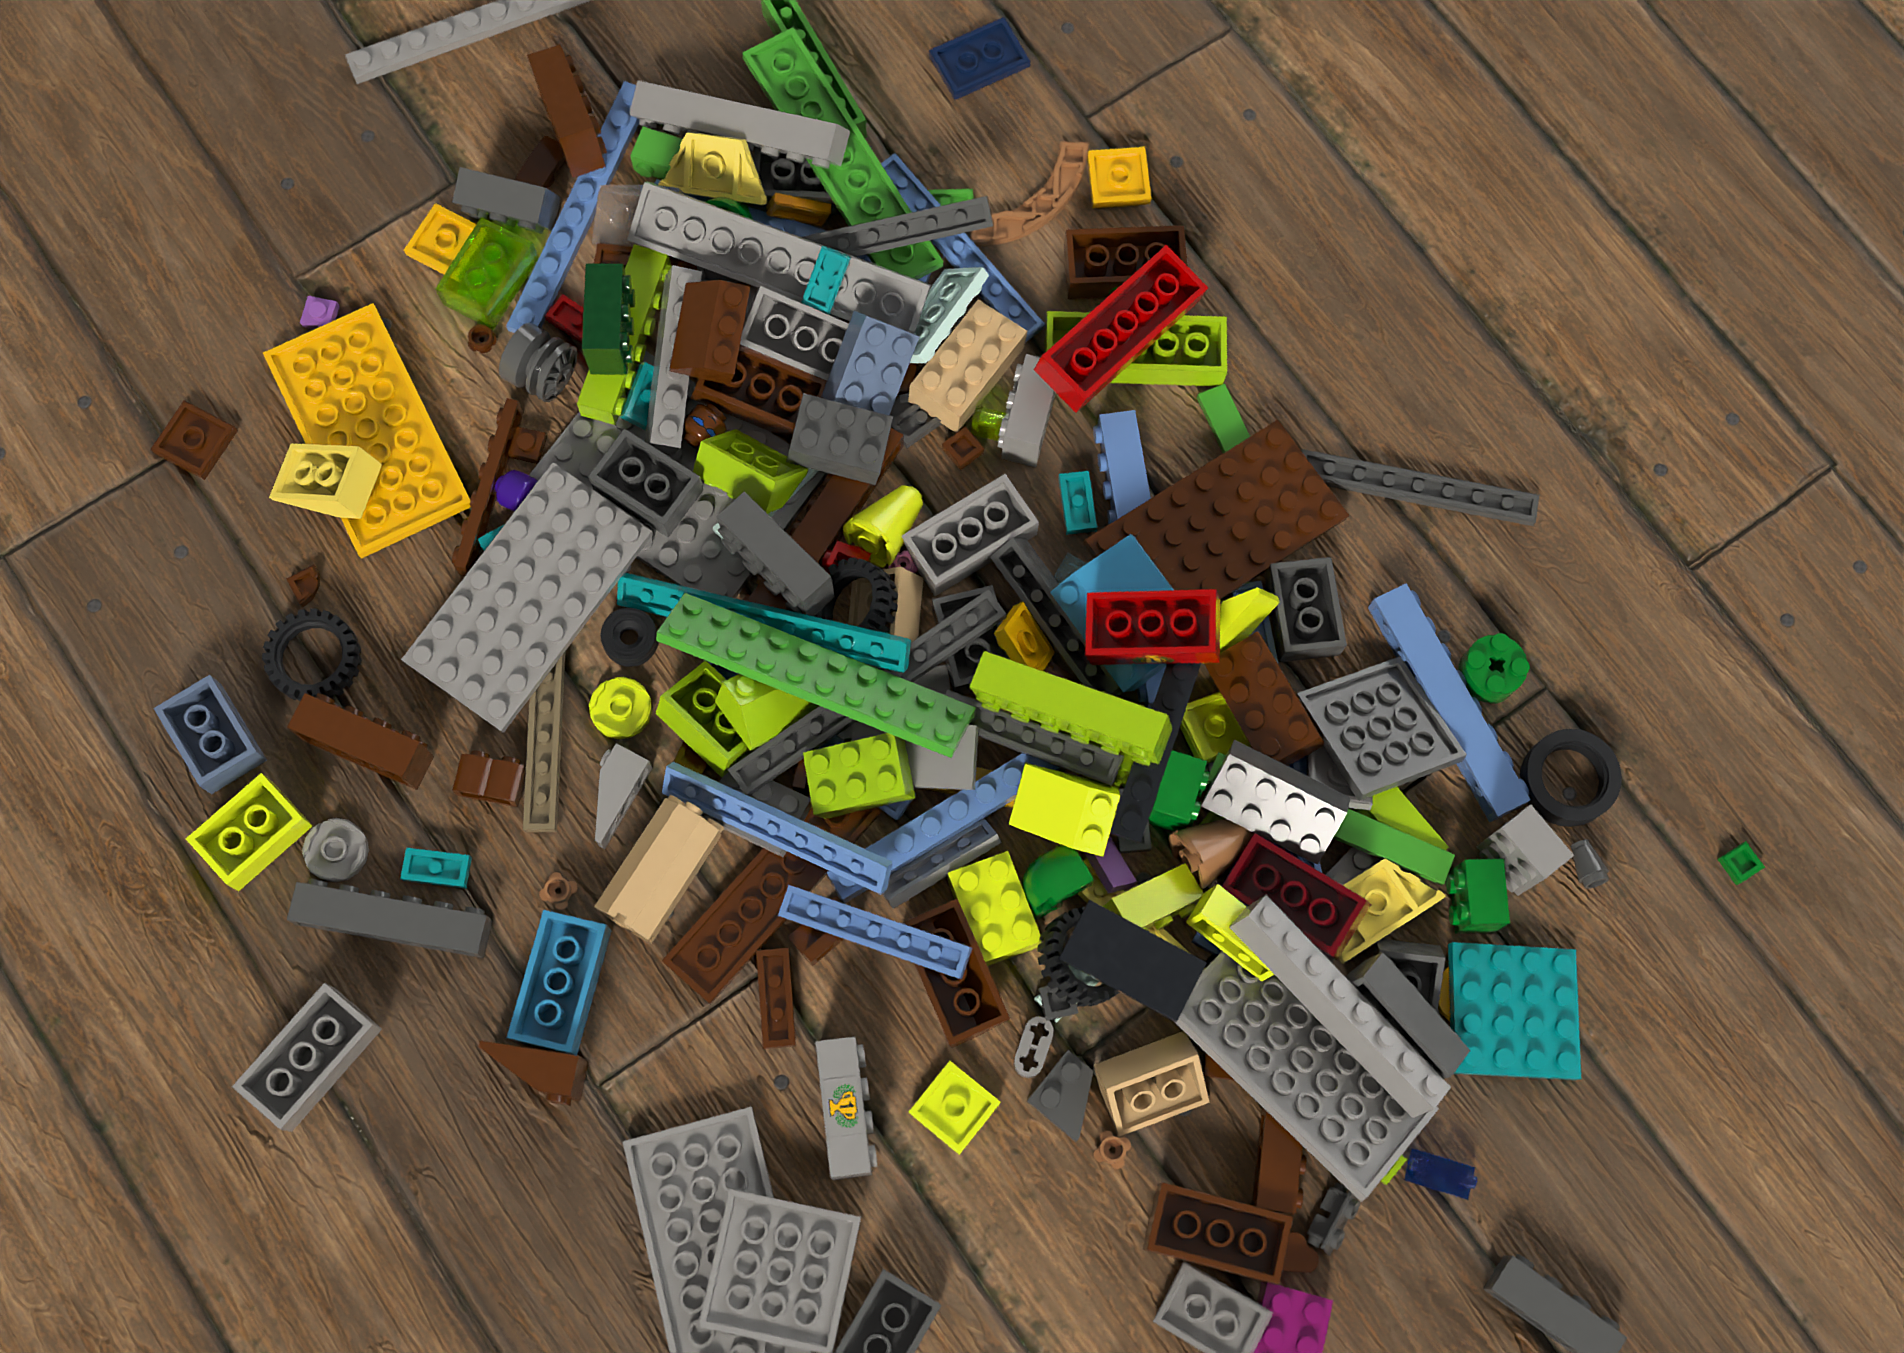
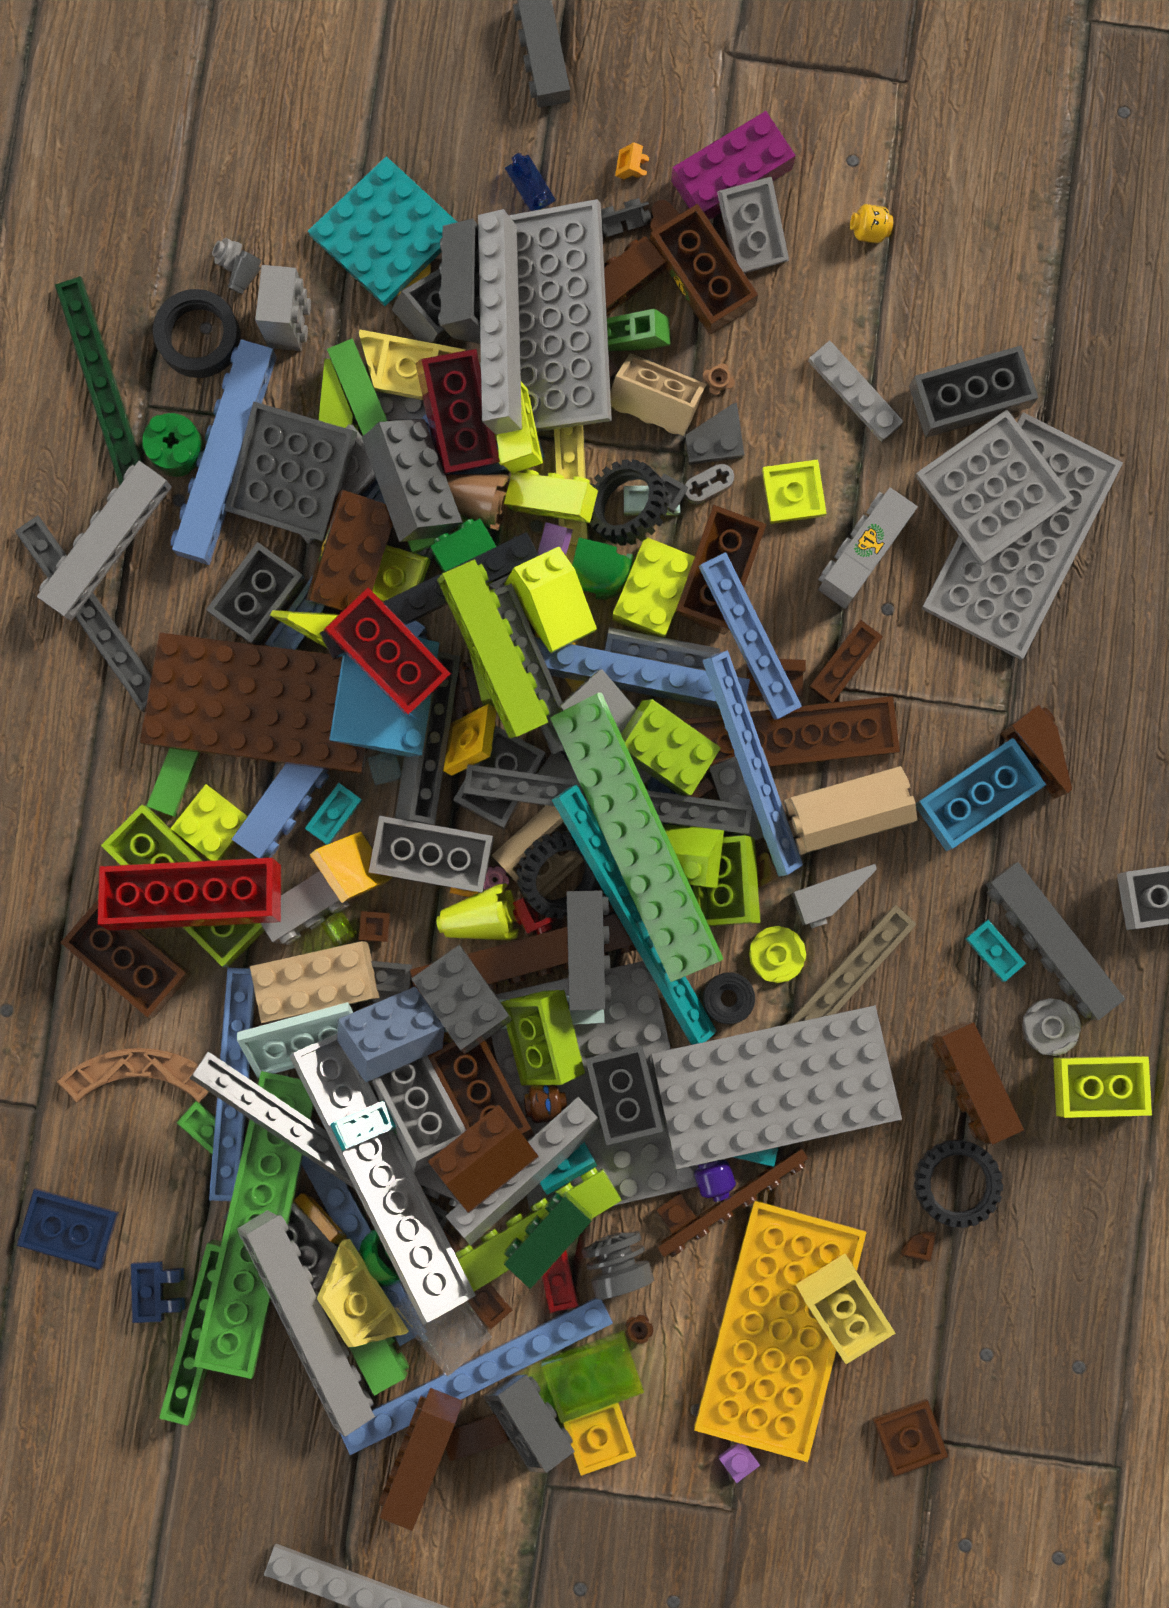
camera: 135 degrees left, 10 degrees up
(210, 734) = (1075, 1184): sand blue brick -> none
(489, 778) = (909, 981): reddish brown brick -> none
(549, 893) = (933, 866): medium nougat plate -> none
(878, 63) = (147, 1291): none -> dark blue plate
(984, 1254) = (855, 391): none -> light grey plate
(1027, 460) = (347, 866): none -> yellow tile
(1119, 177) = (62, 1032): yellow plate -> none
(1132, 960) = (605, 463): black tile -> none
(1164, 415) = (209, 823): none -> neon yellow plate
(1221, 1121) = (638, 331): none -> bright green slope
(1376, 1276) = (629, 162): none -> light orange tile
(1464, 544) = (104, 540): none -> light grey brick
(1478, 896) = (338, 311): green brick -> none
(1602, 671) = (99, 375): none -> dark green tile
(1619, 867) = (225, 253): none -> light grey plate
(1741, 863) = (144, 186): green tile -> none

